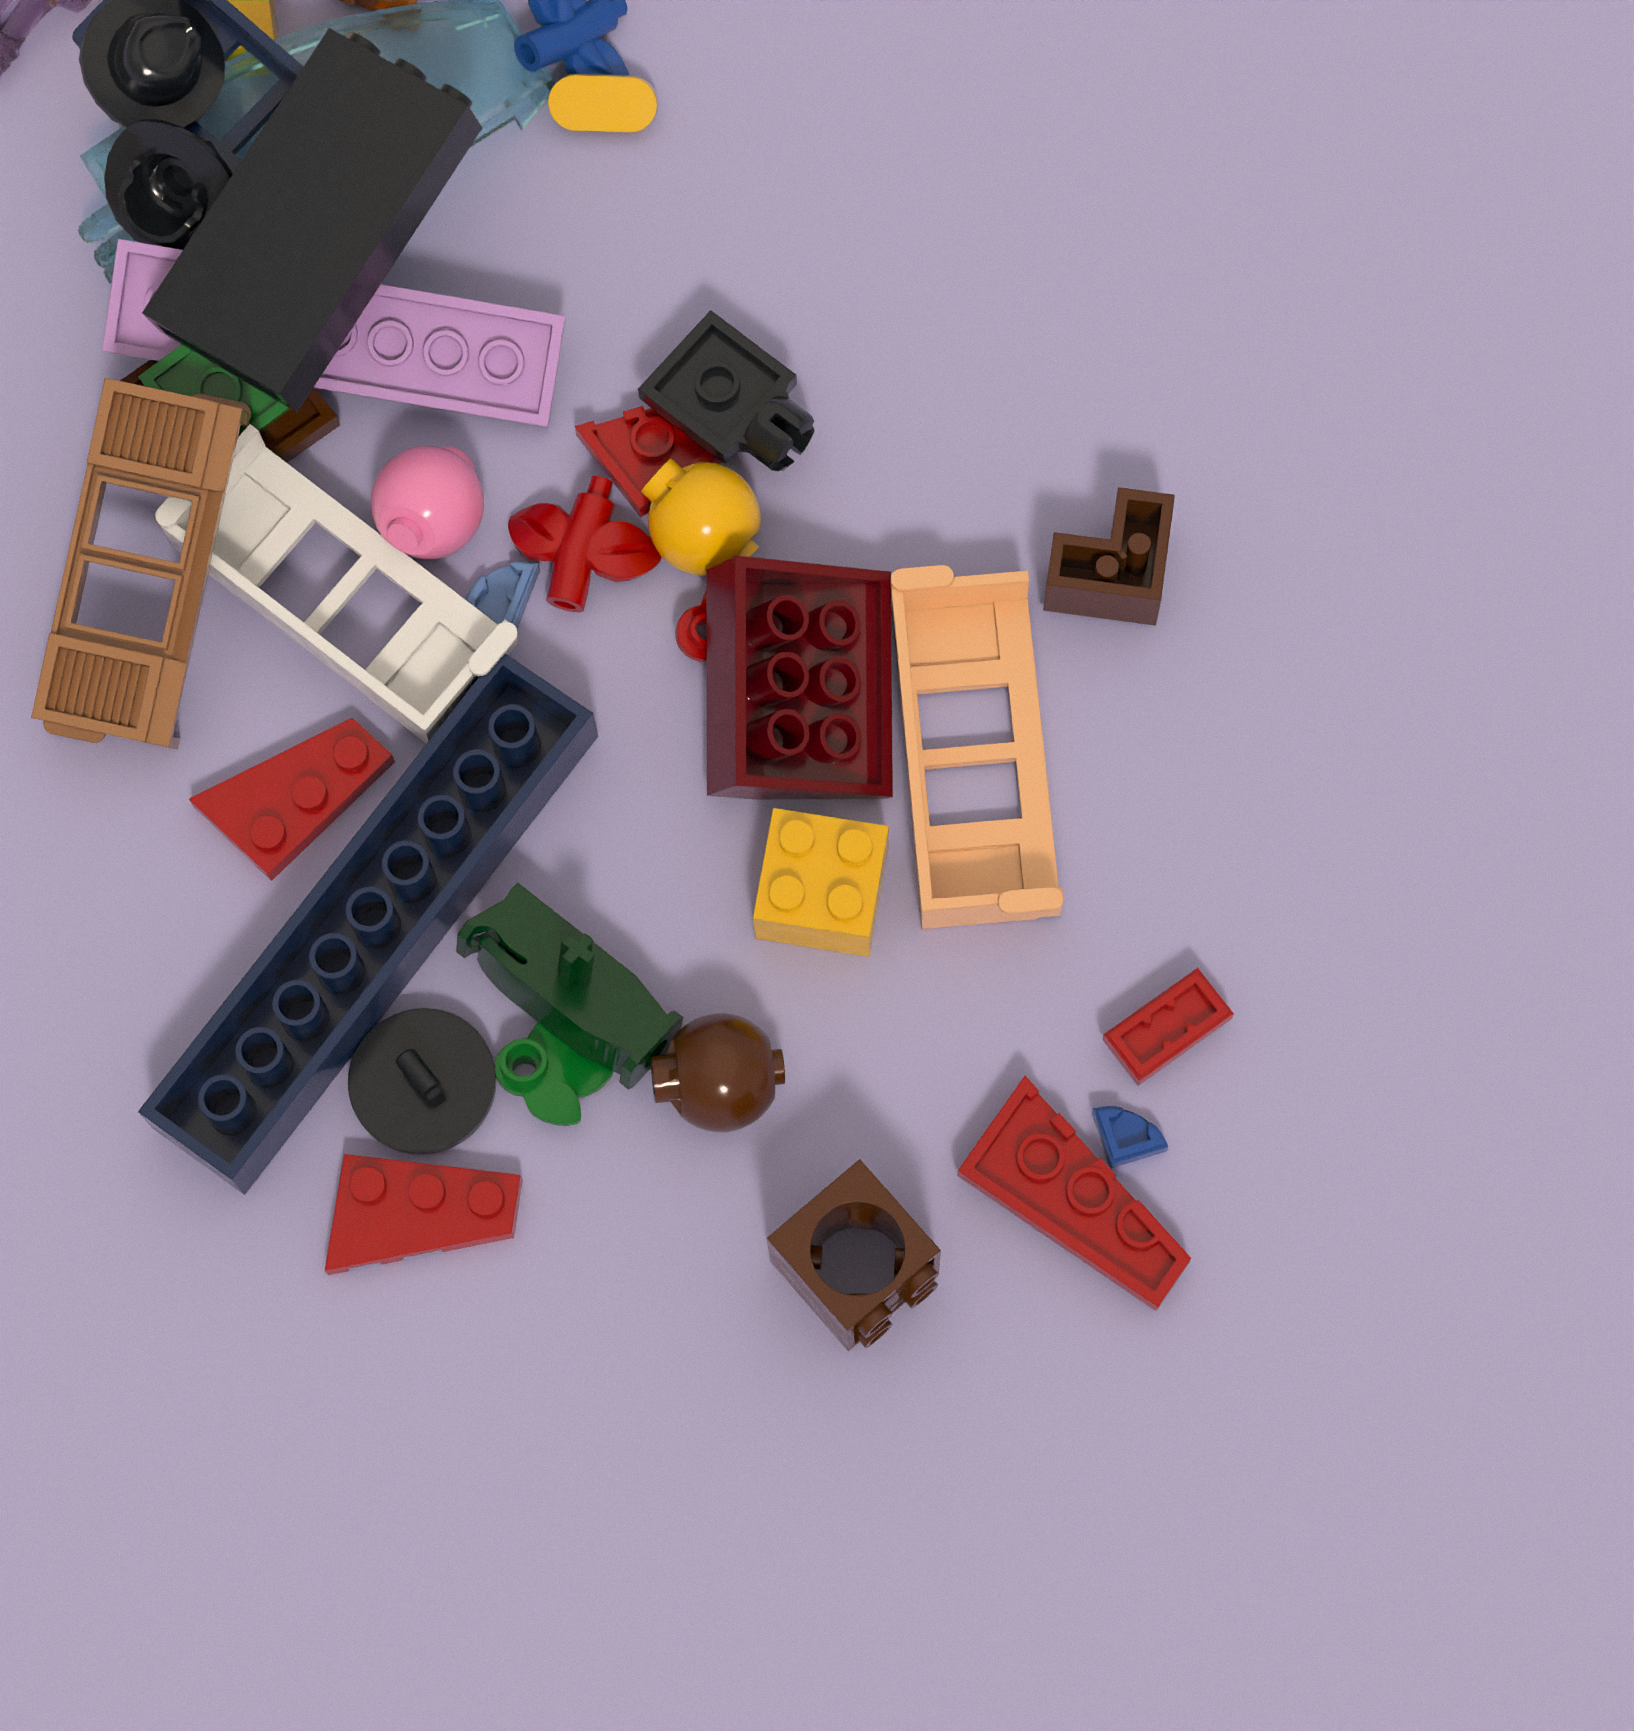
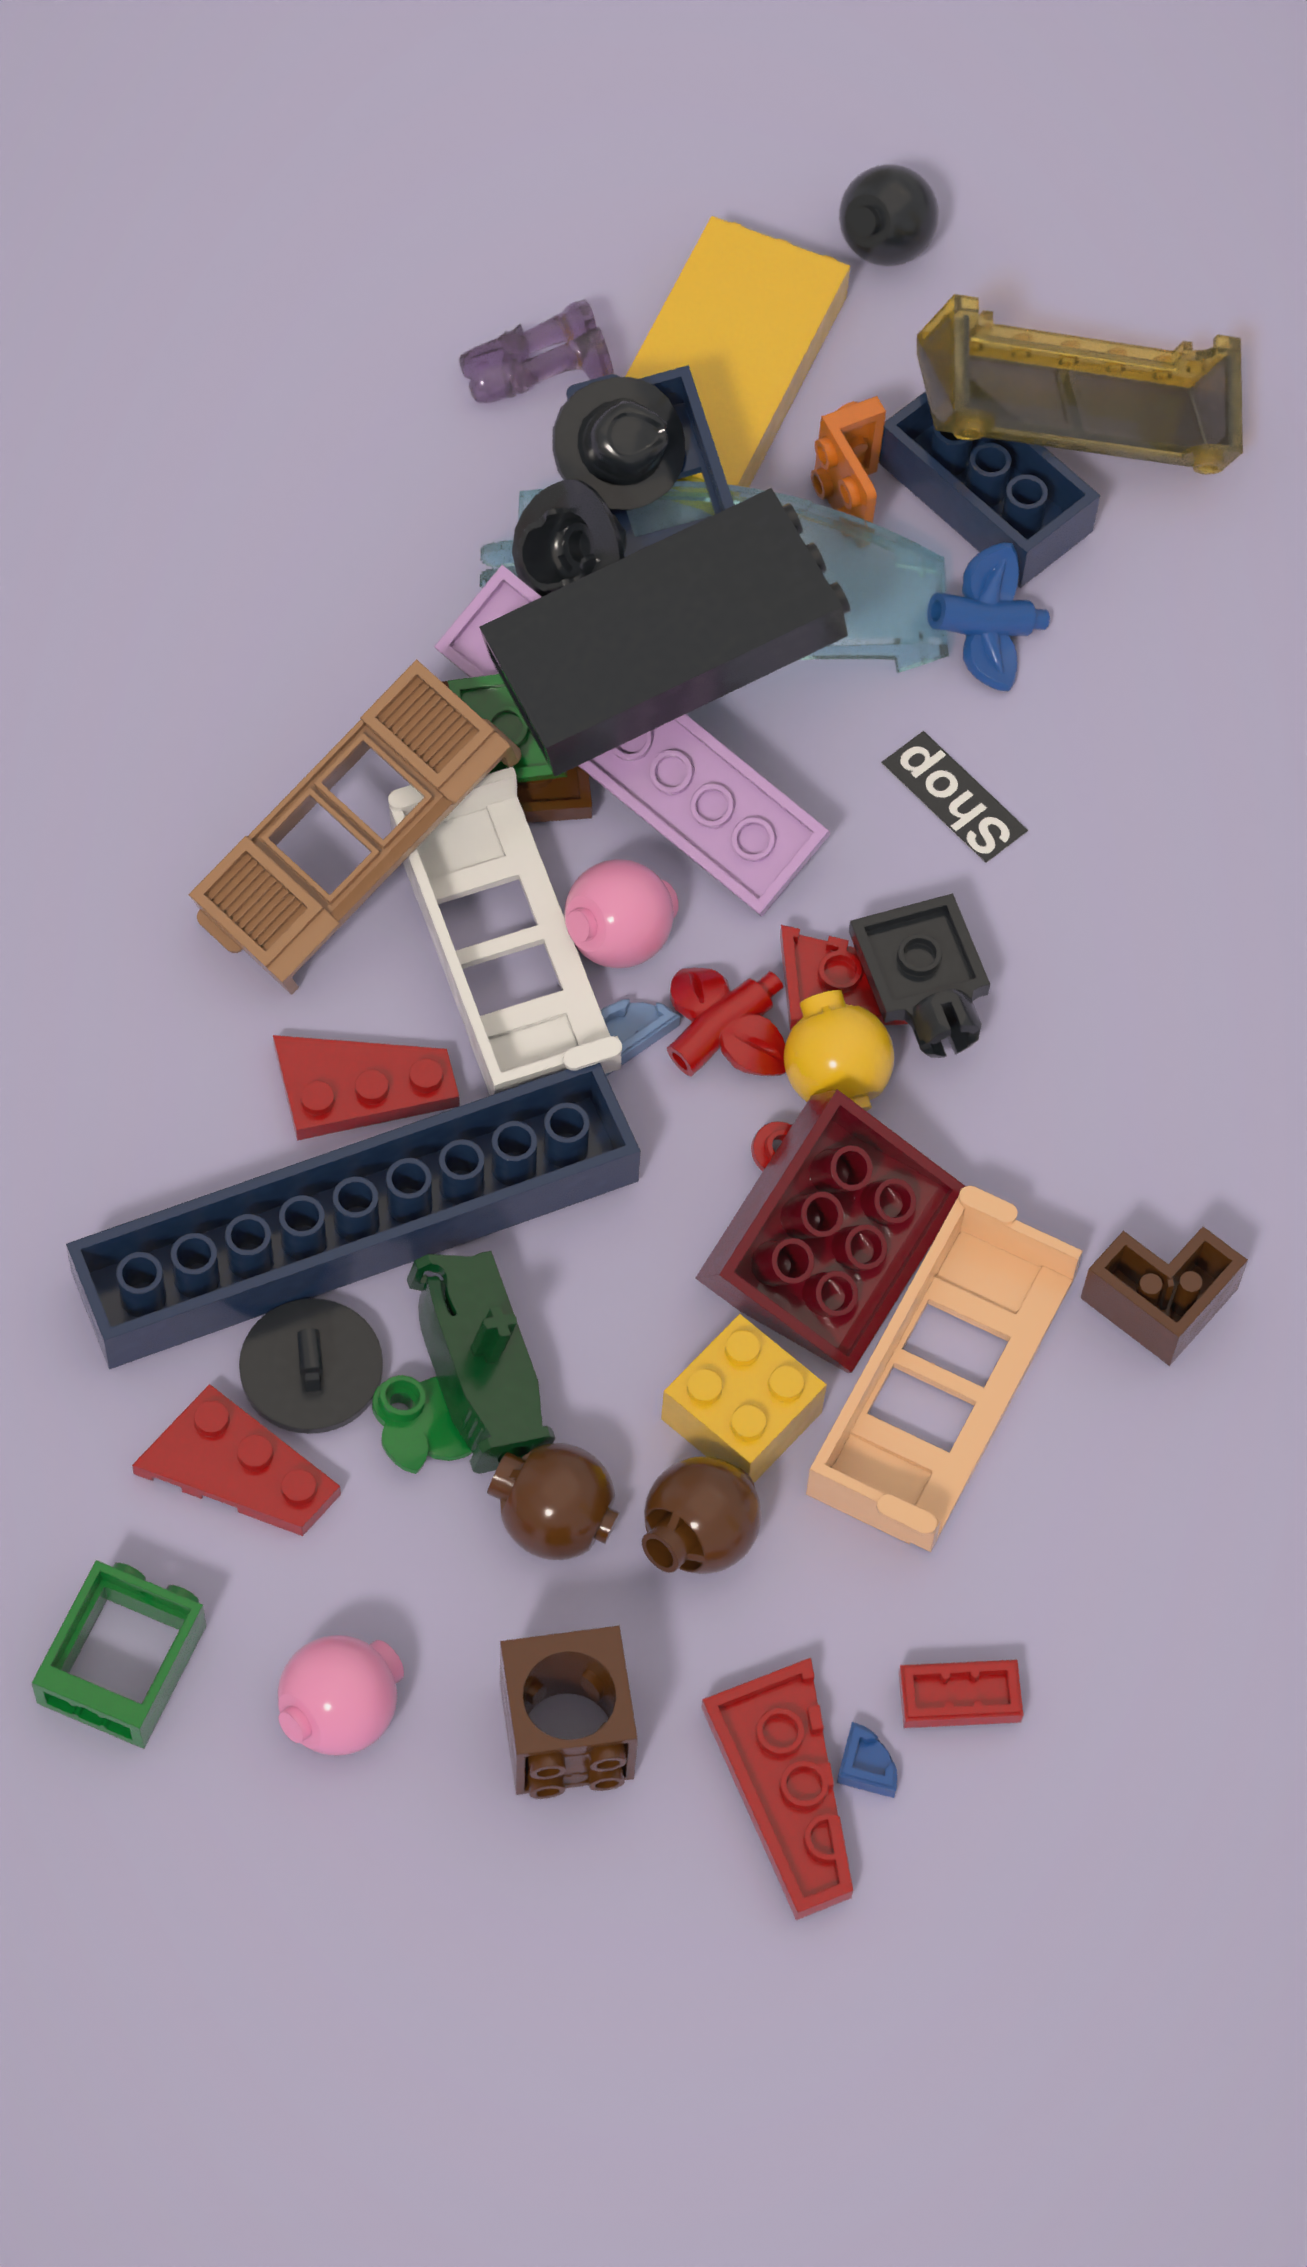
camera: 25 degrees right, 10 degrees down
(434, 1509) = (96, 1705): none -> green window
(603, 103) = (977, 686): yellow tile -> none
(644, 215) = (954, 796): none -> black sticker
(645, 1364) = (339, 1694): none -> bright pink brick
(855, 1010) = (700, 1516): none -> reddish brown brick

